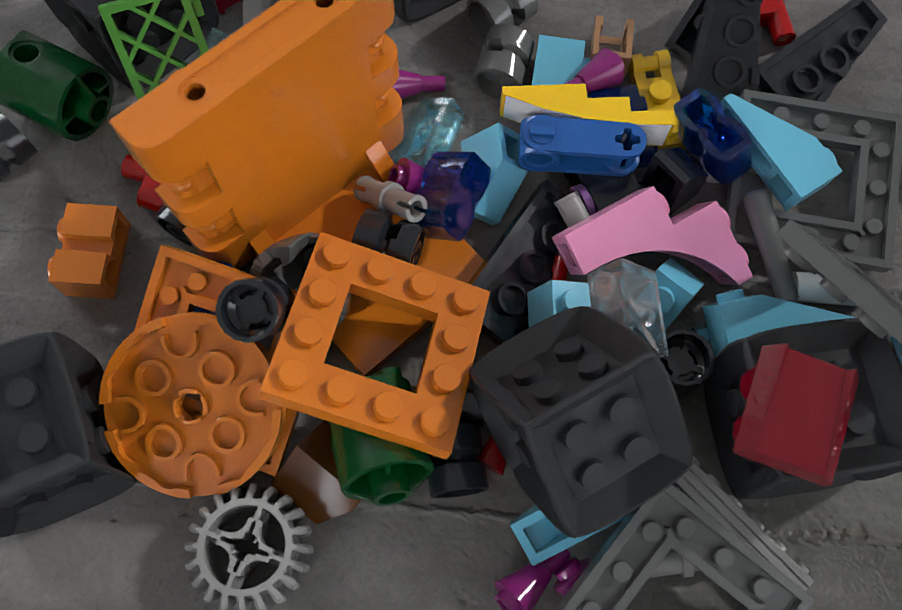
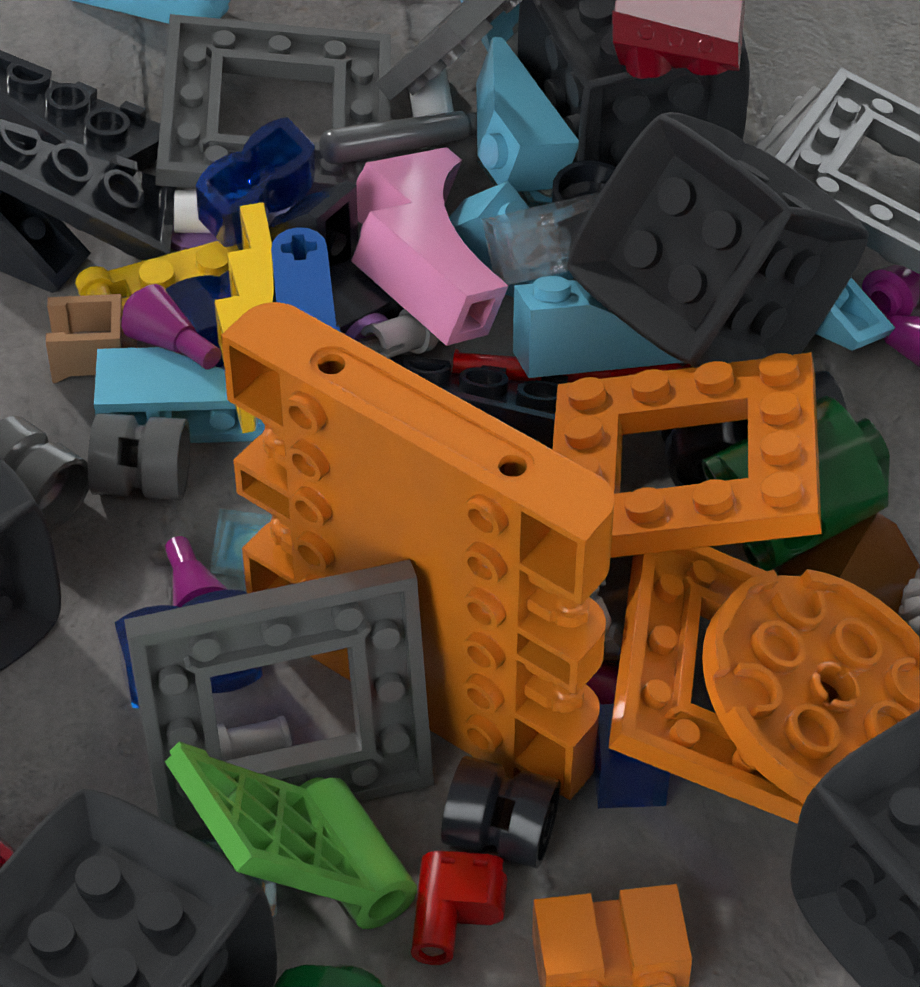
camera: 100 degrees left, 20 degrees down
(254, 308) = (691, 574): black wheel -> none
(782, 155) = (272, 91): medium azure slope -> none

